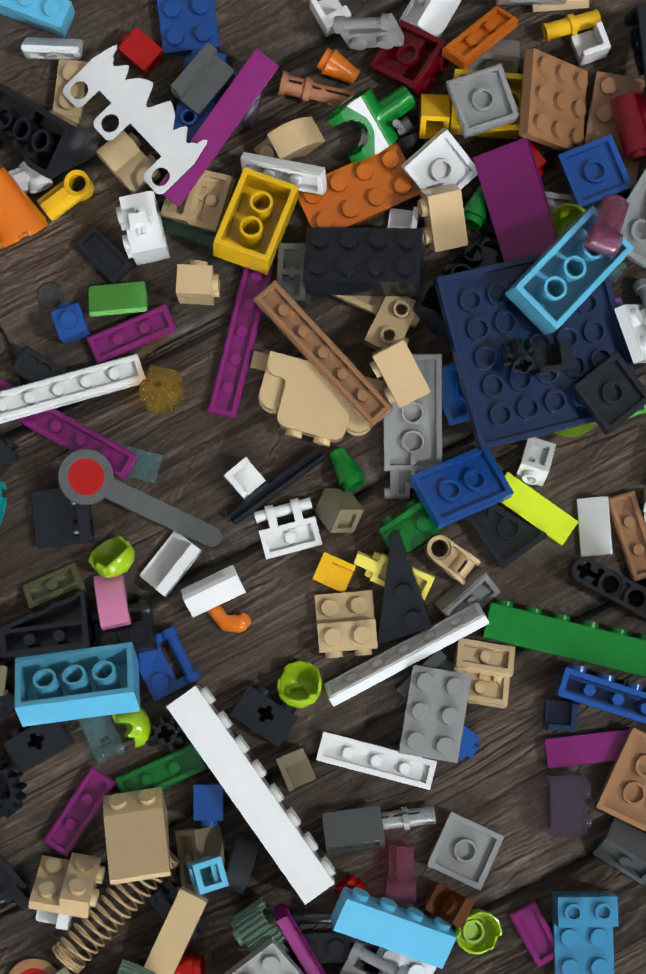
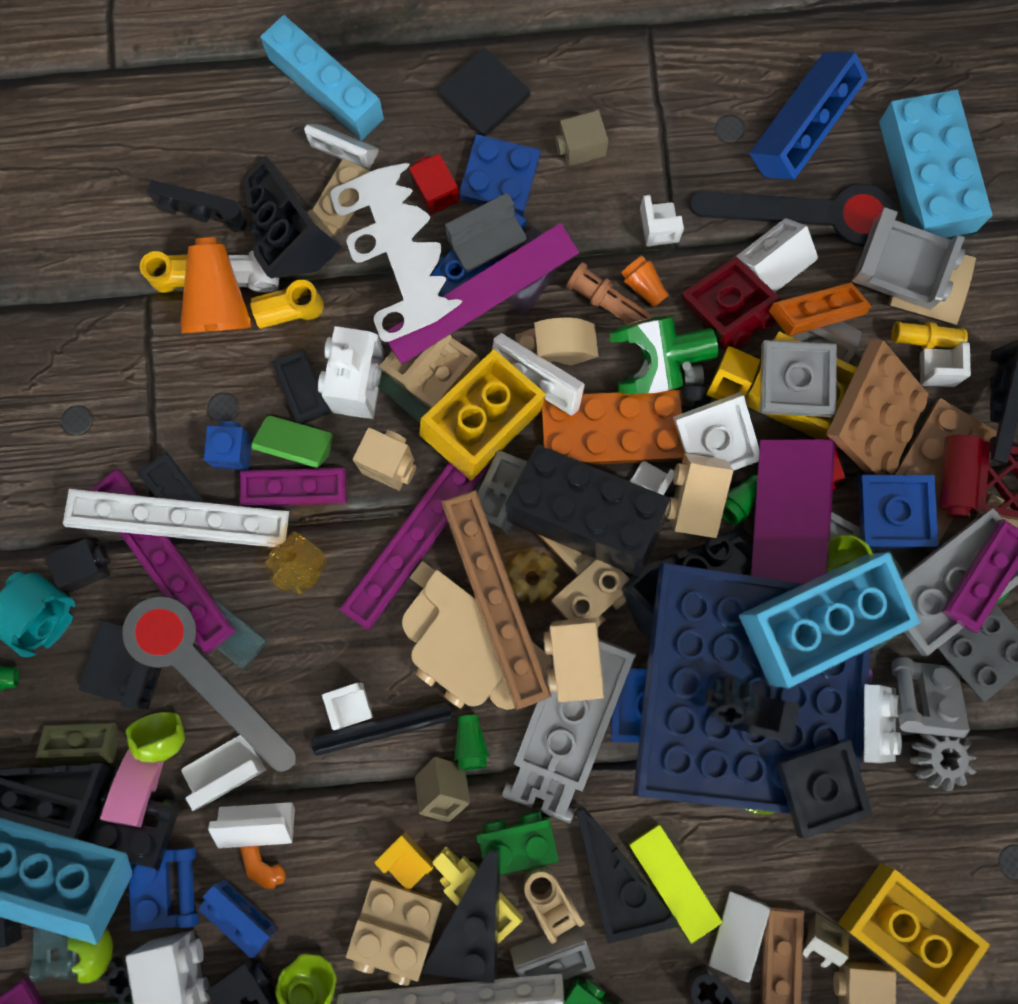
camera: 30 degrees right, 5 degrees down
(128, 161) = (368, 293): tan brick -> none
(228, 661) = (237, 917): none -> blue bracket
(290, 536) = (372, 797): white plate -> none
(343, 317) = (536, 563): none -> clear yellow brick
(369, 32) = (697, 254): light grey plate -> none
(461, 487) = (595, 825): blue plate -> none
(535, 461) = (698, 828): white bracket -> none
(605, 234) = (893, 593): clear pink piece -> none

